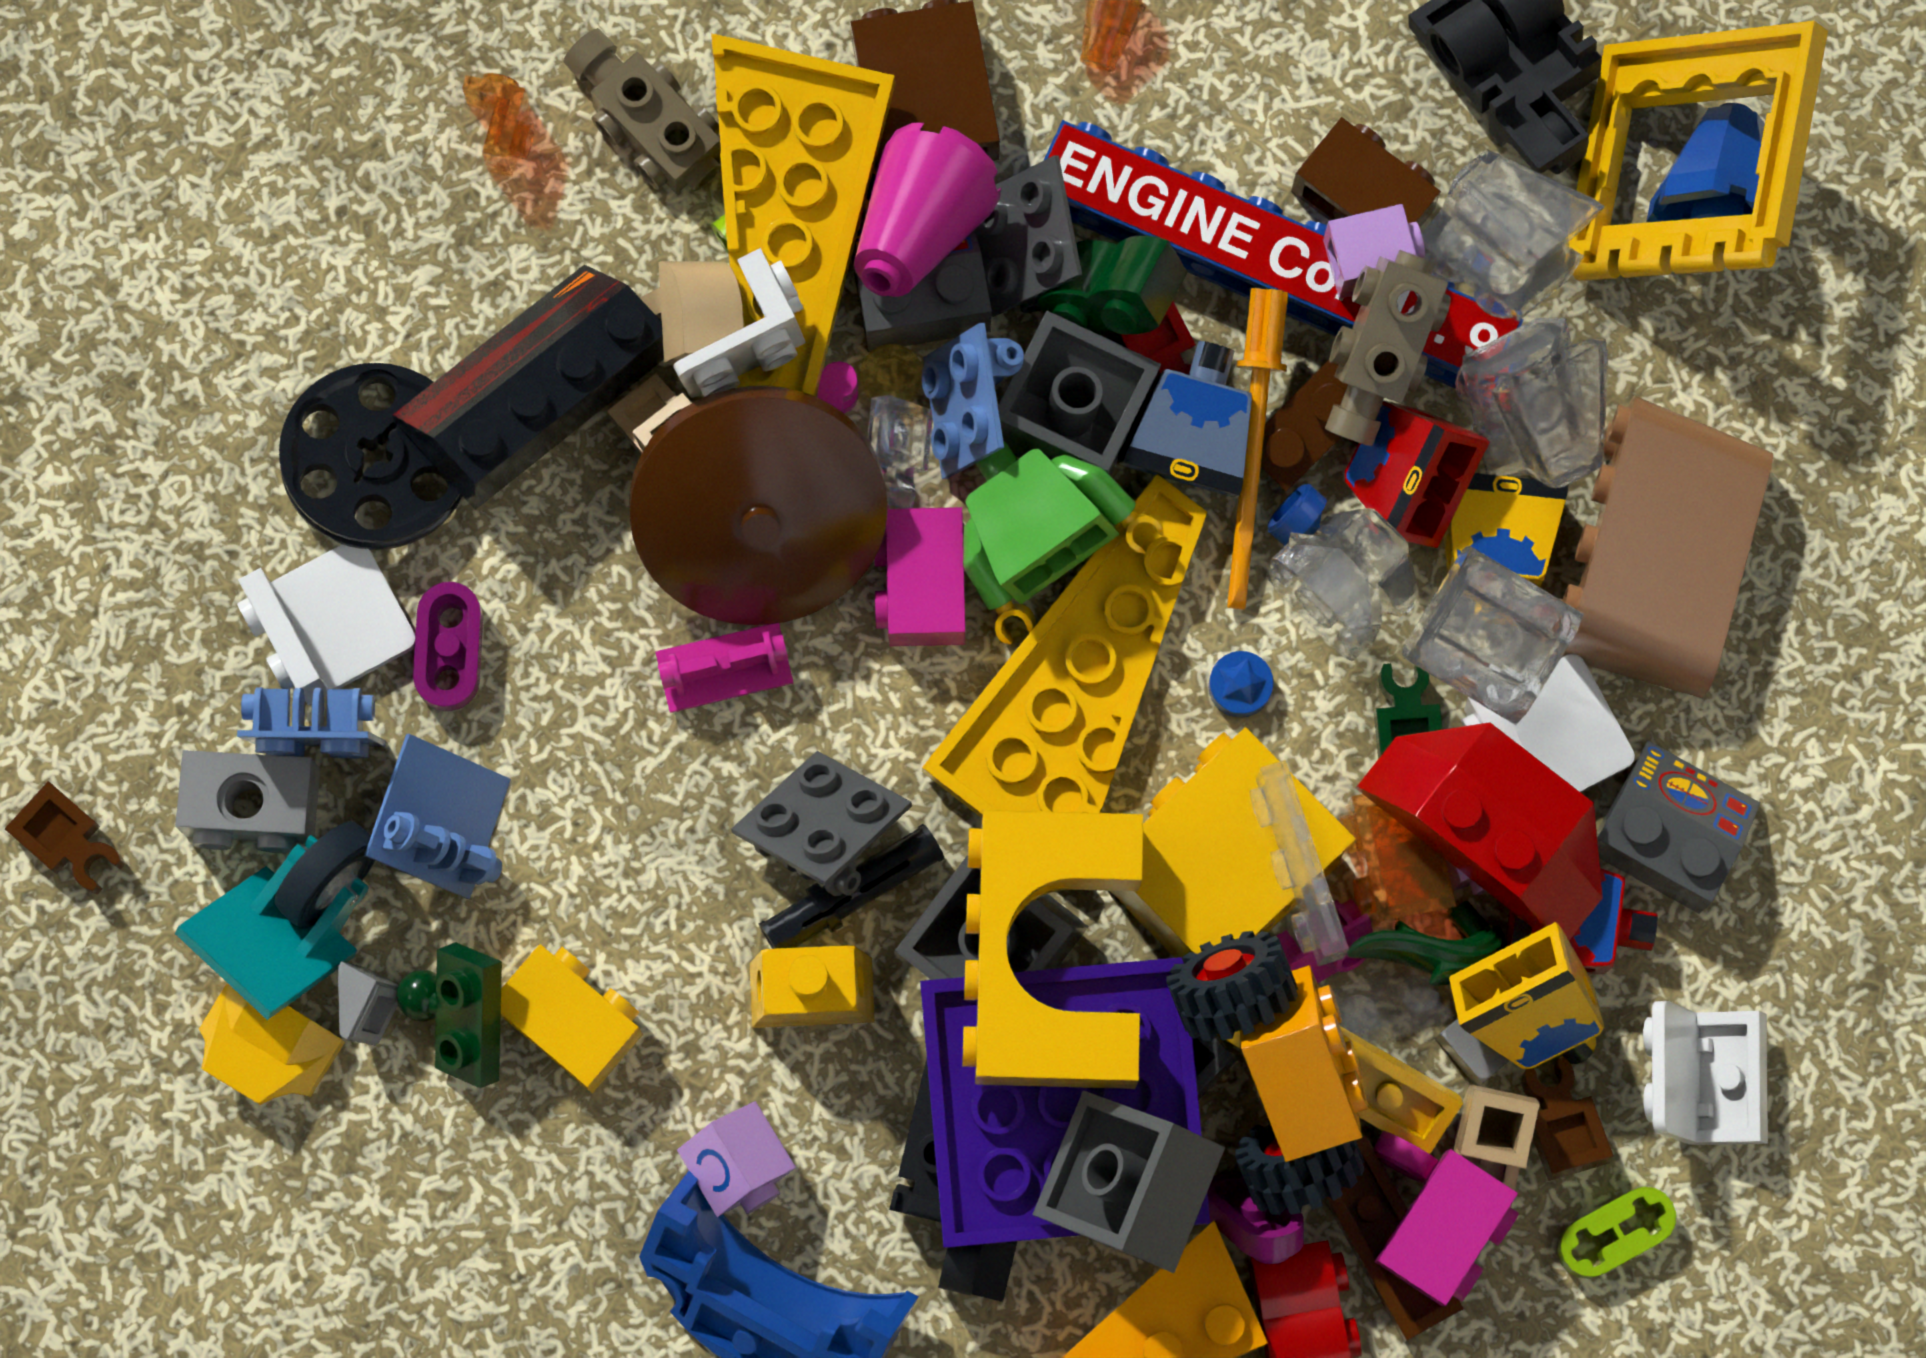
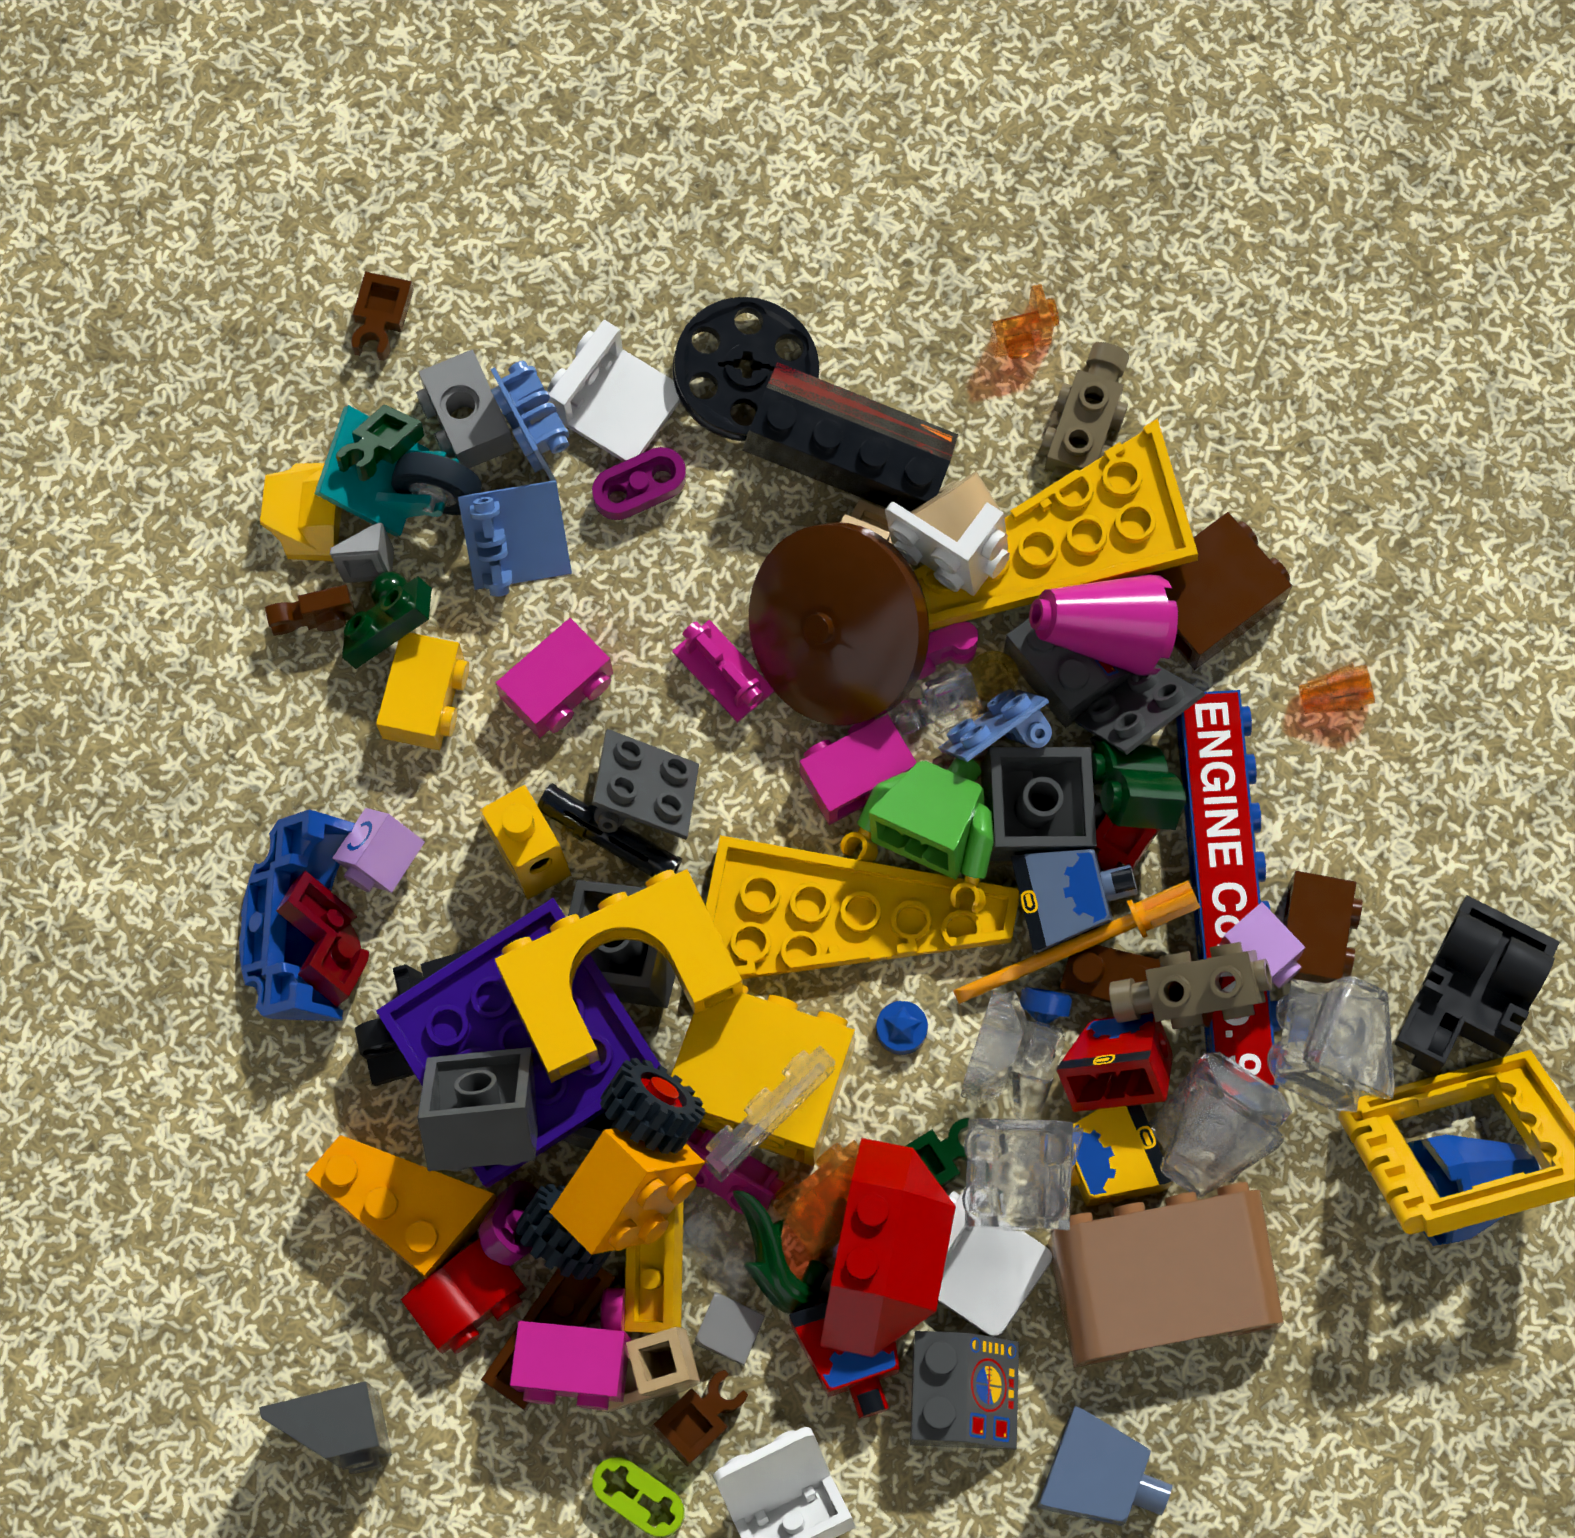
camera: 65 degrees right, 5 degrees down
(241, 906) = (381, 437): none -> dark green plate
(406, 1081) = (320, 609): none -> reddish brown plate
(636, 858) = (556, 679): none -> dark pink brick
(841, 1270) = (325, 919): none -> dark red plate
(1530, 1001) = (768, 1342): yellow torso -> none
(1833, 728) = (1100, 1474): none -> sand blue torso

